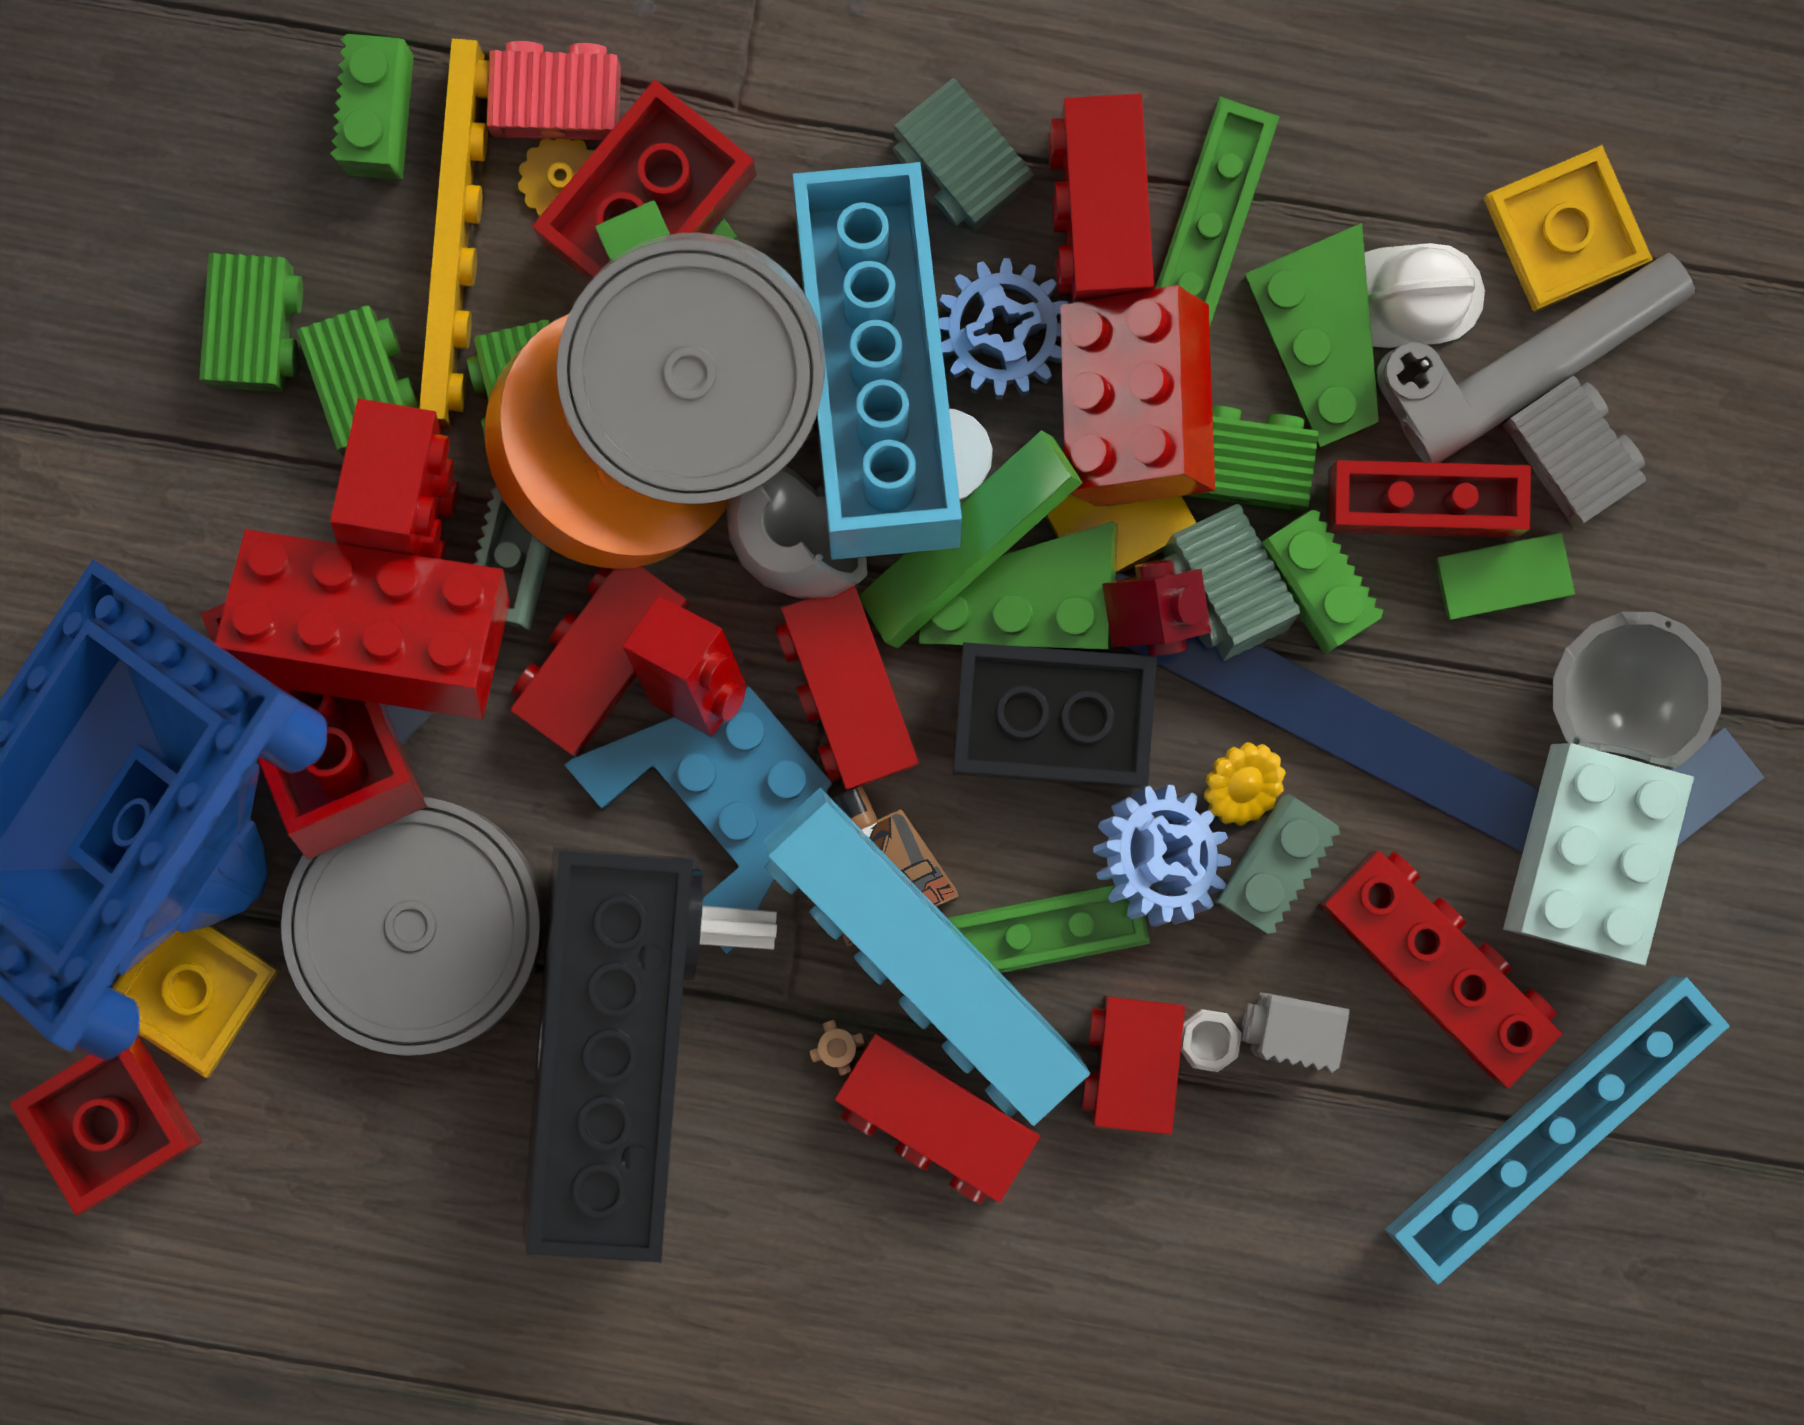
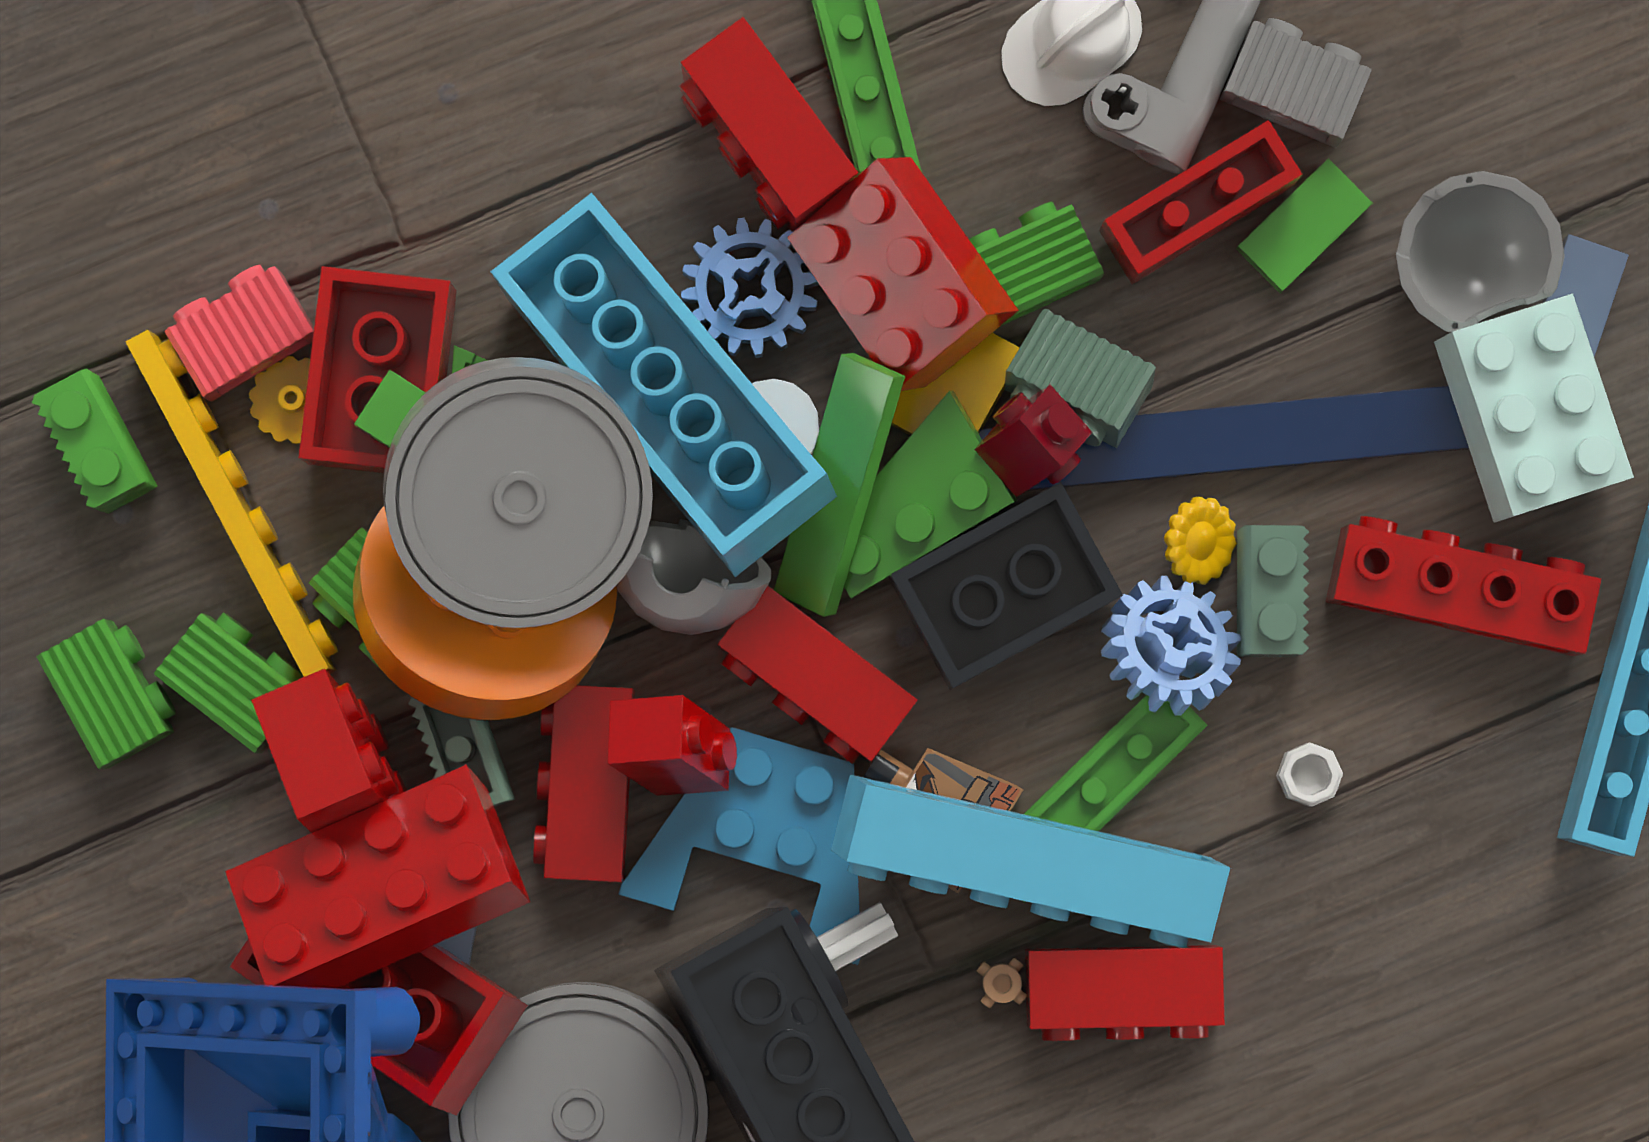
camera: 35 degrees left, 0 degrees up
(962, 156) = (621, 164): sand green brick -> none
(1135, 1064) = (1261, 835): red brick -> none
(1295, 1031) = (1378, 720): light grey brick -> none
(1321, 582) = (1156, 329): bright green brick -> none
(1322, 332) = (1019, 117): bright green wing -> none

